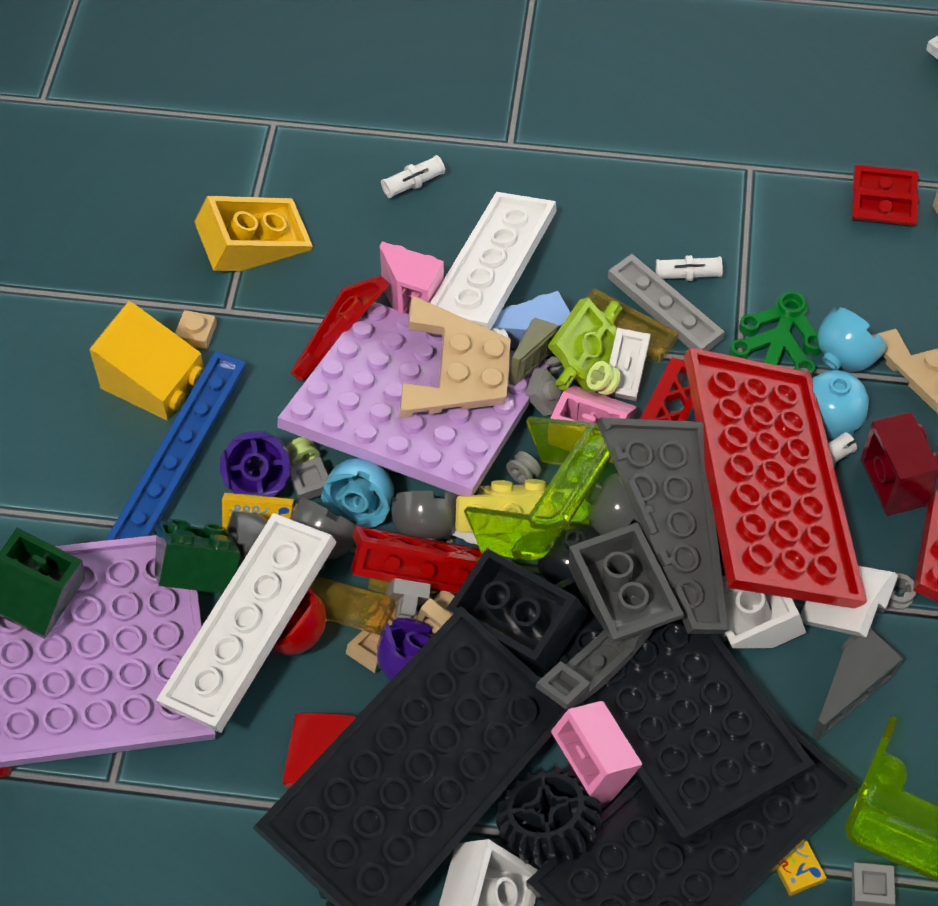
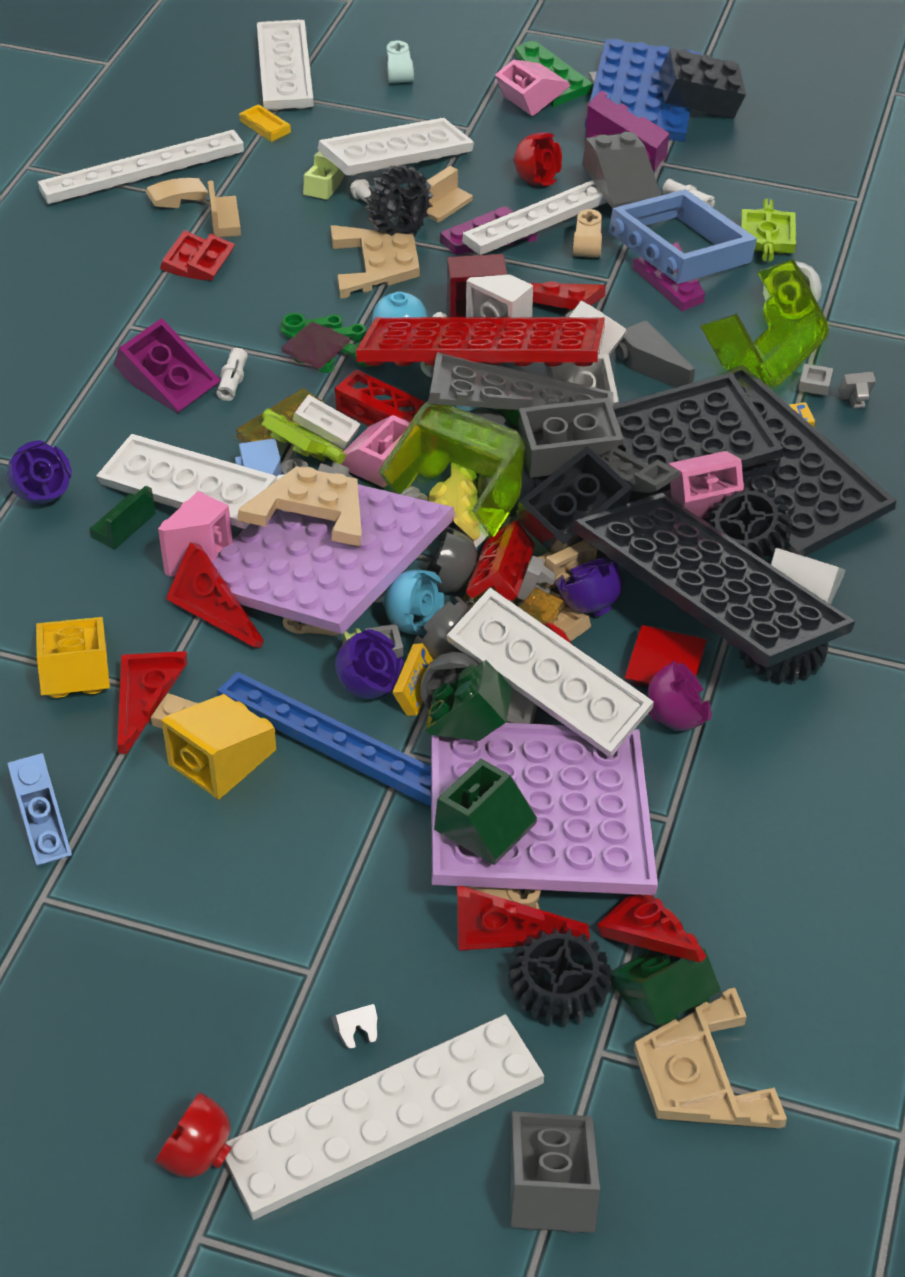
camera: 80 degrees left, 10 degrees down
(67, 252) = (39, 809): none -> light blue slope
(226, 296) = (143, 686): none -> red wing
(254, 767) = (677, 698): none -> magenta cylinder
(430, 169) = (50, 531): white pin -> none
(440, 228) = (124, 518): none -> dark green panel
(472, 141) = (38, 472): none -> dark purple cylinder
(531, 349) = (291, 455): olive slope -> none
(598, 372) = (331, 432): yellowish green bush -> none
(665, 304) = (264, 393): light grey plate -> none
(674, 208) = (165, 367): none -> magenta slope
(760, 331) = (315, 344): none -> clear pink piece
(847, 342) = (348, 293): medium azure cylinder -> none
(873, 496) = (498, 297): none -> white slope

